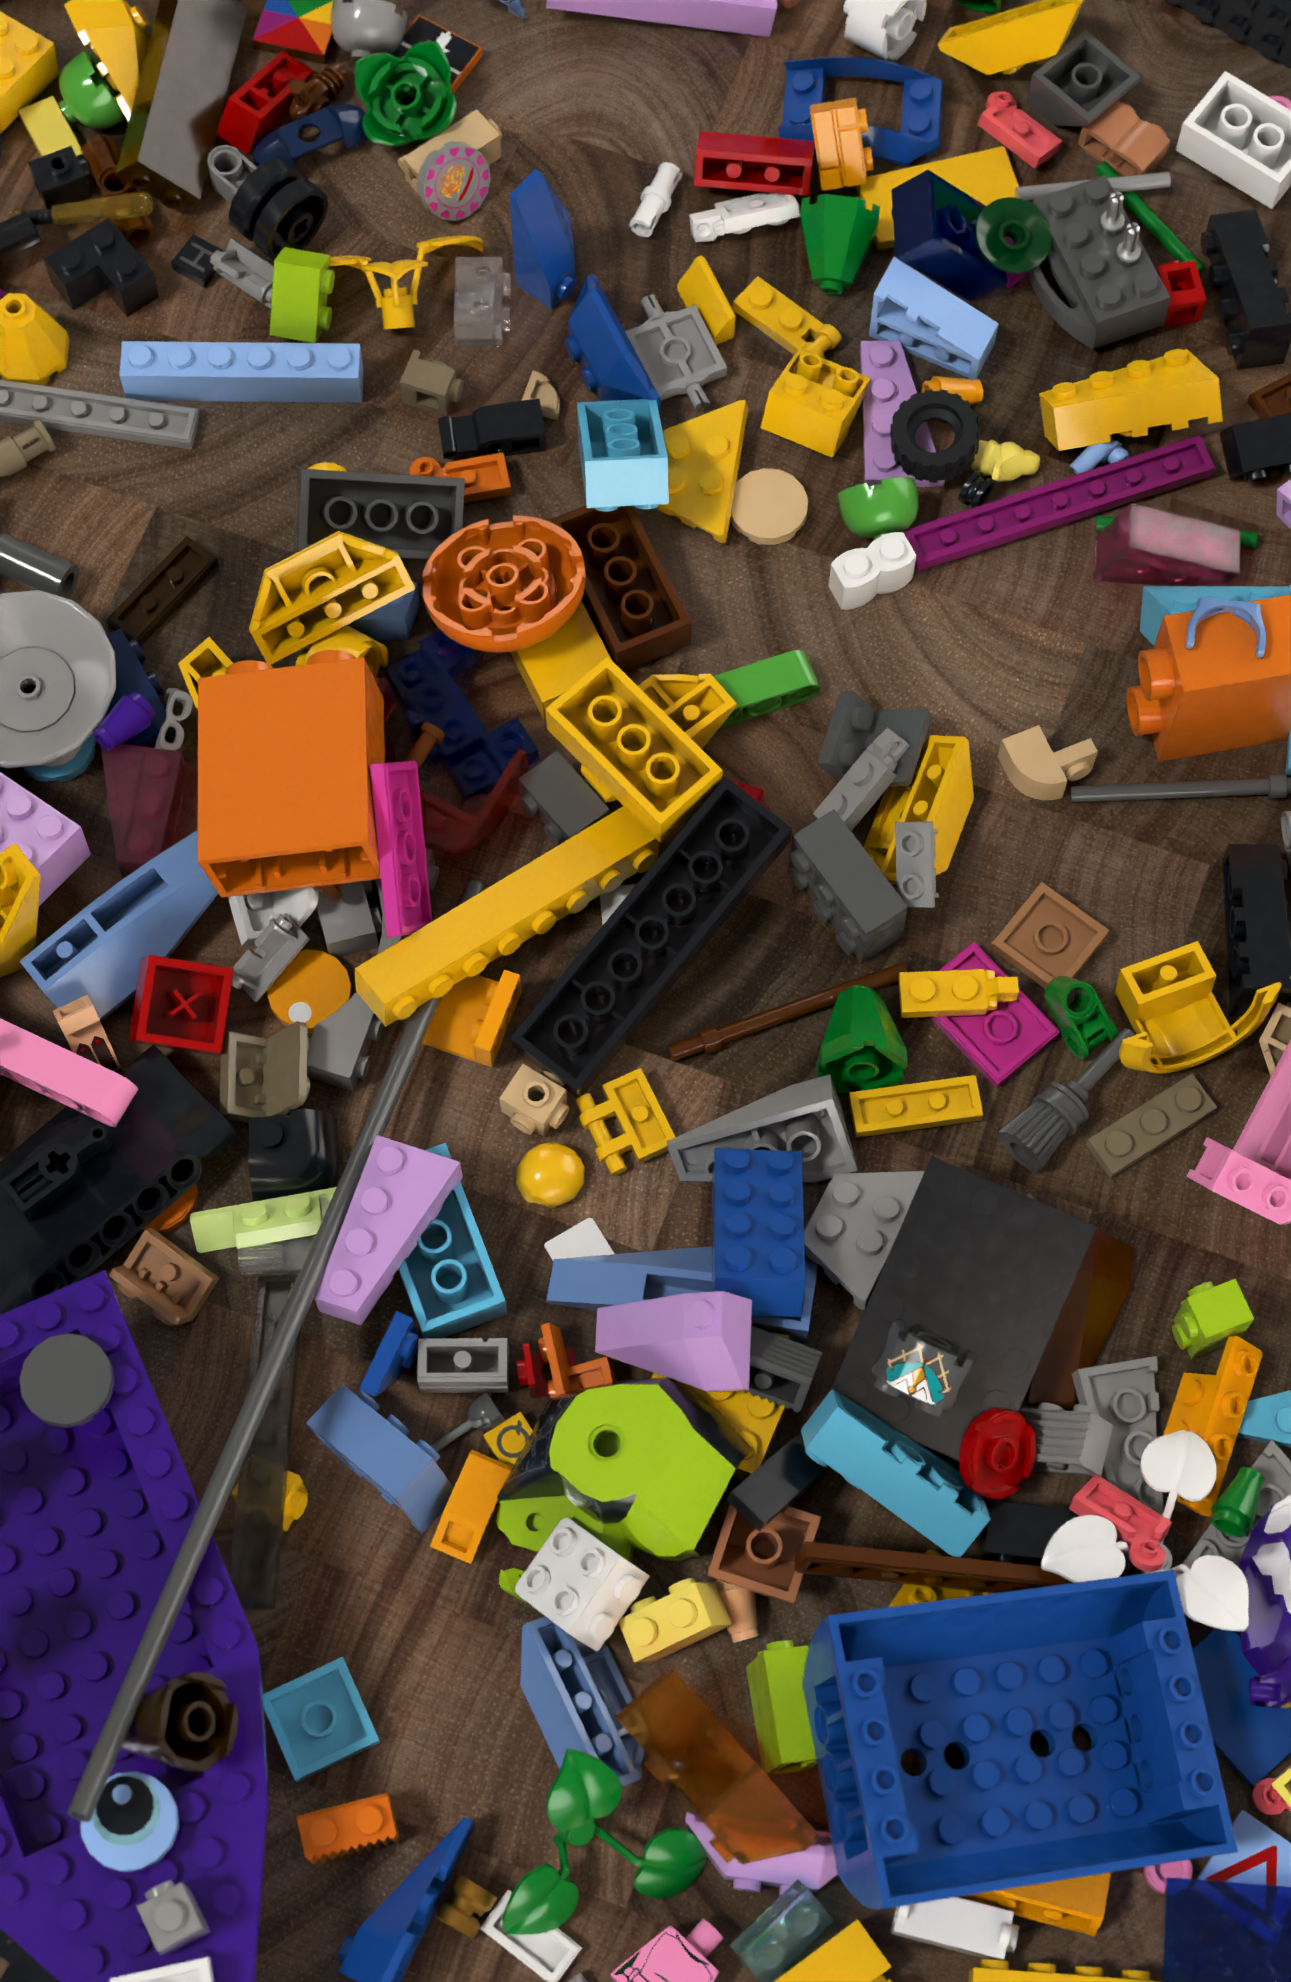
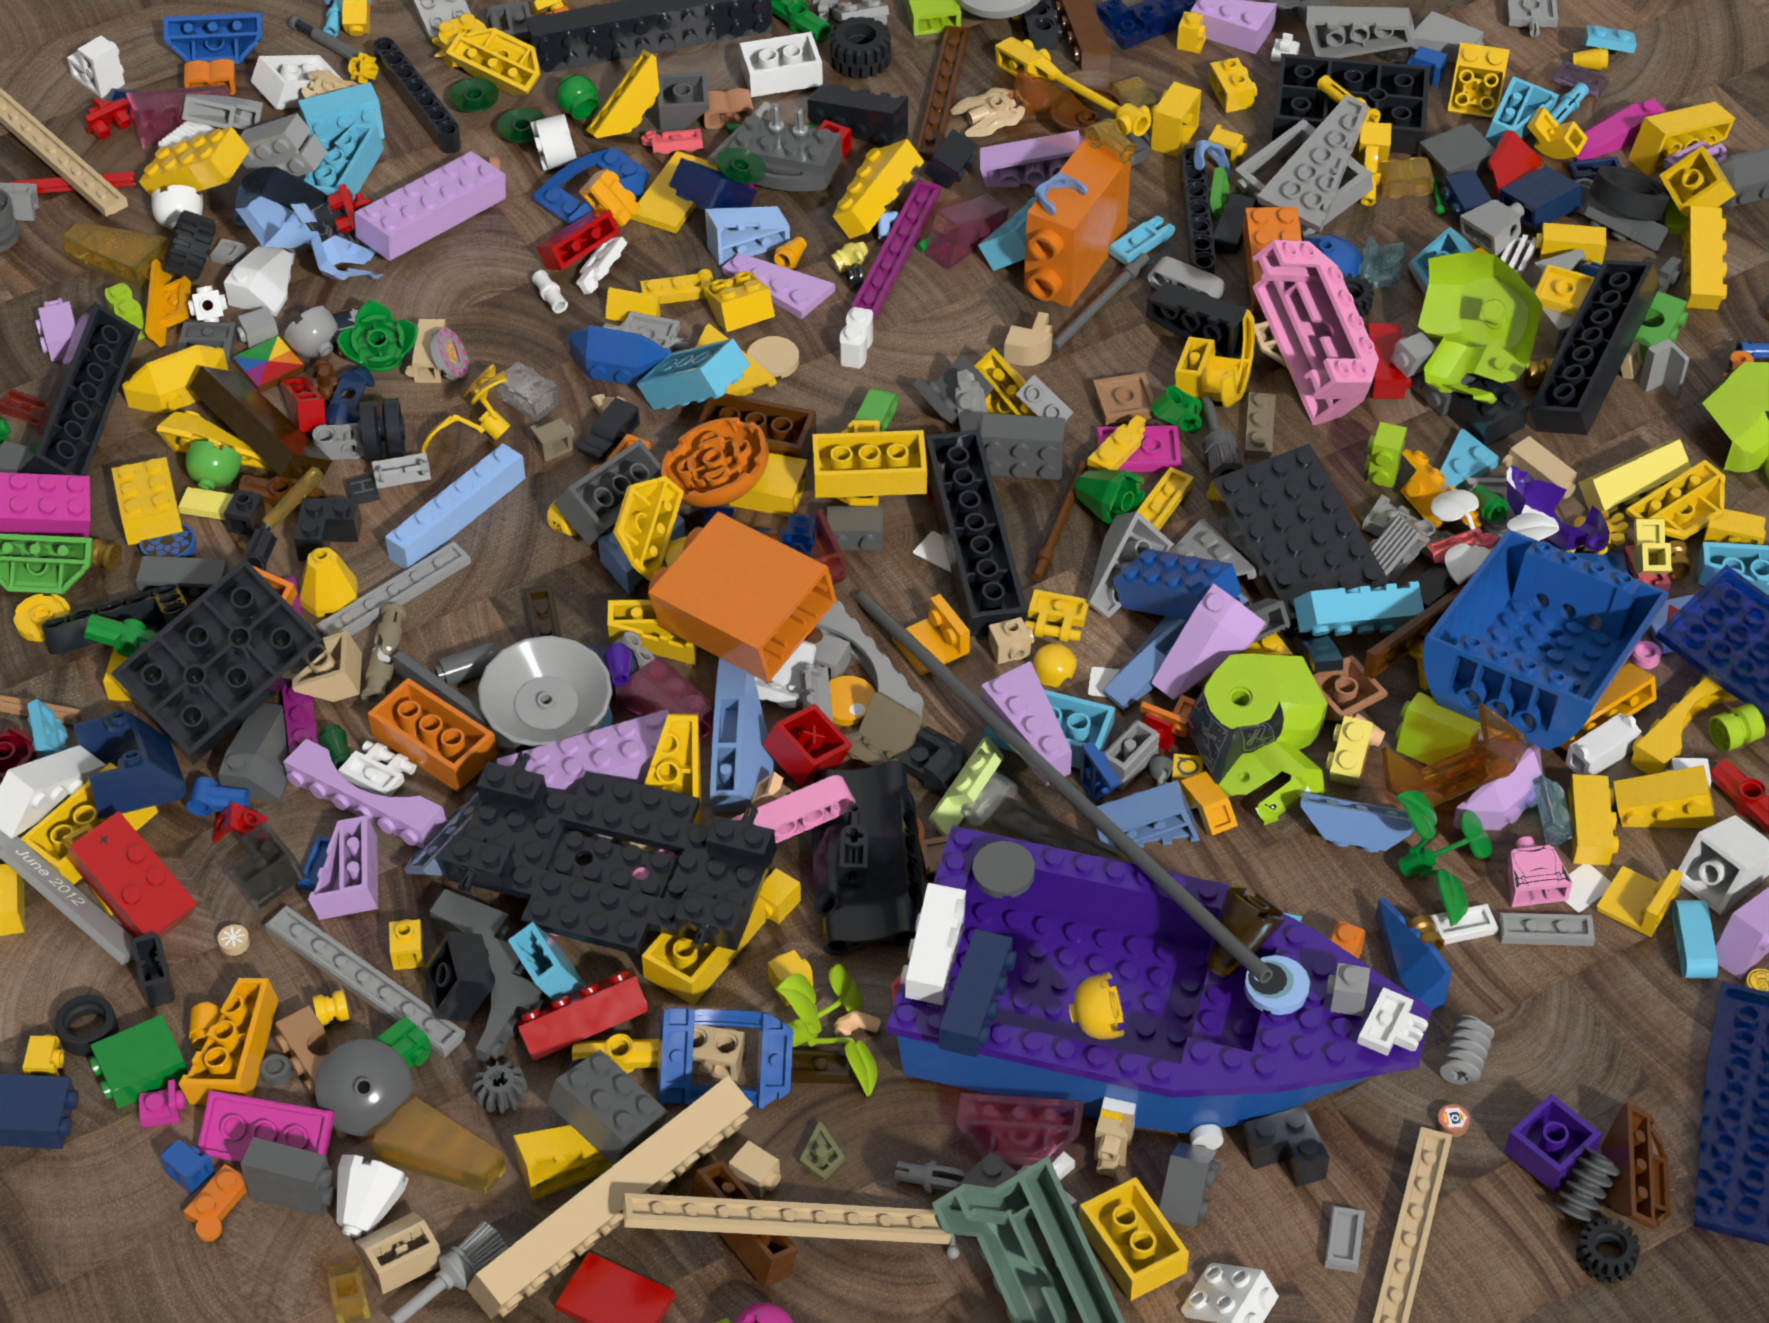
camera: 50 degrees left, 20 degrees down
(300, 295) = (444, 450): lime brick -> none
(401, 847) = (847, 597): dark pink tile -> none
(505, 916) = (900, 582): yellow brick -> none
(542, 241) = (537, 337): blue wedge -> none
(581, 1584) = (1297, 768): white bracket -> none
(836, 239) = (658, 234): green cone -> none
(879, 508) = (827, 312): bright green cylinder -> none
(922, 1367) = (1319, 551): dark grey brick -> none
(934, 406) = (813, 280): black tyre -> none
(997, 1453) = (1384, 563): red tile -> none

